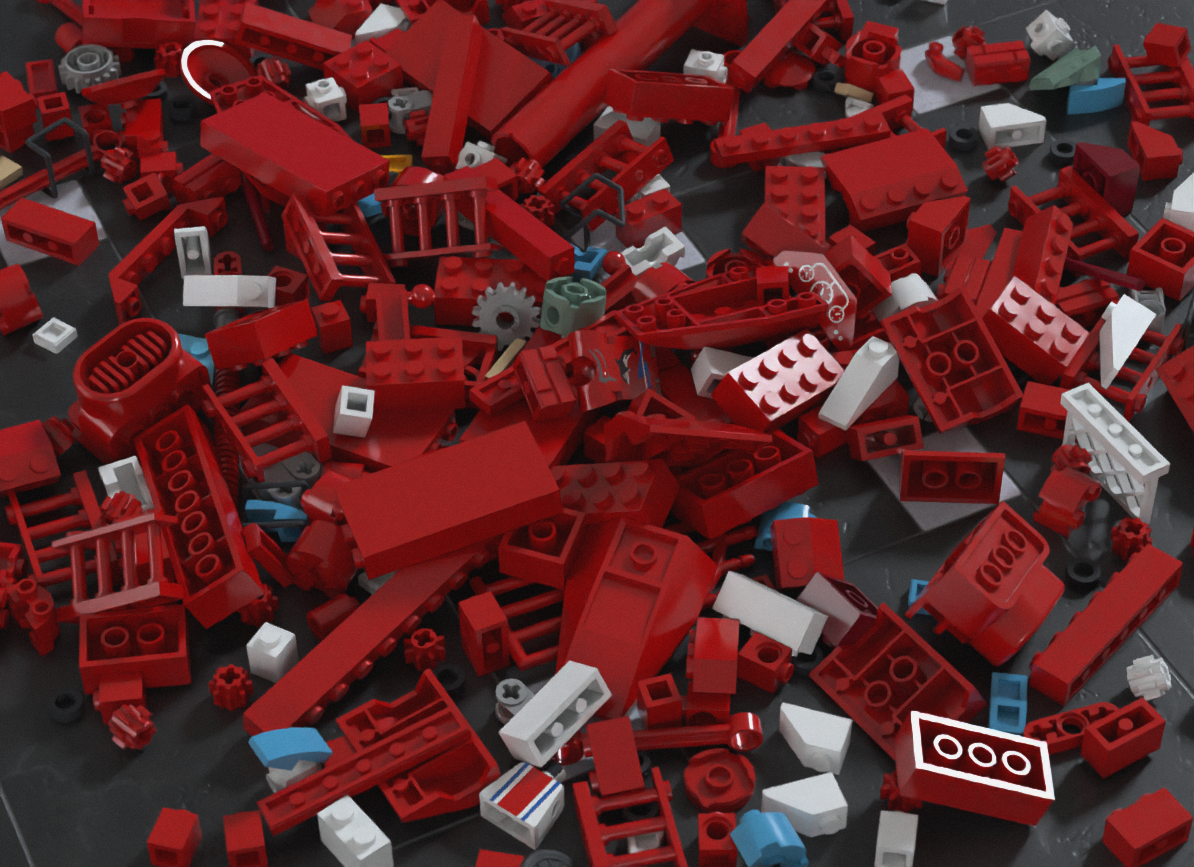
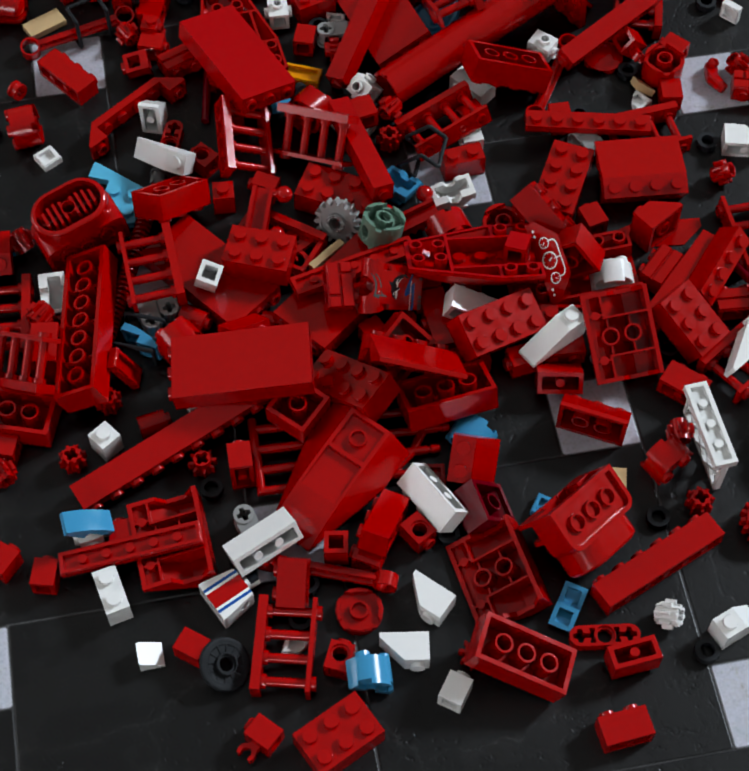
camera: 15 degrees right, 15 degrees up
(322, 559) = (154, 379): red brick -> none

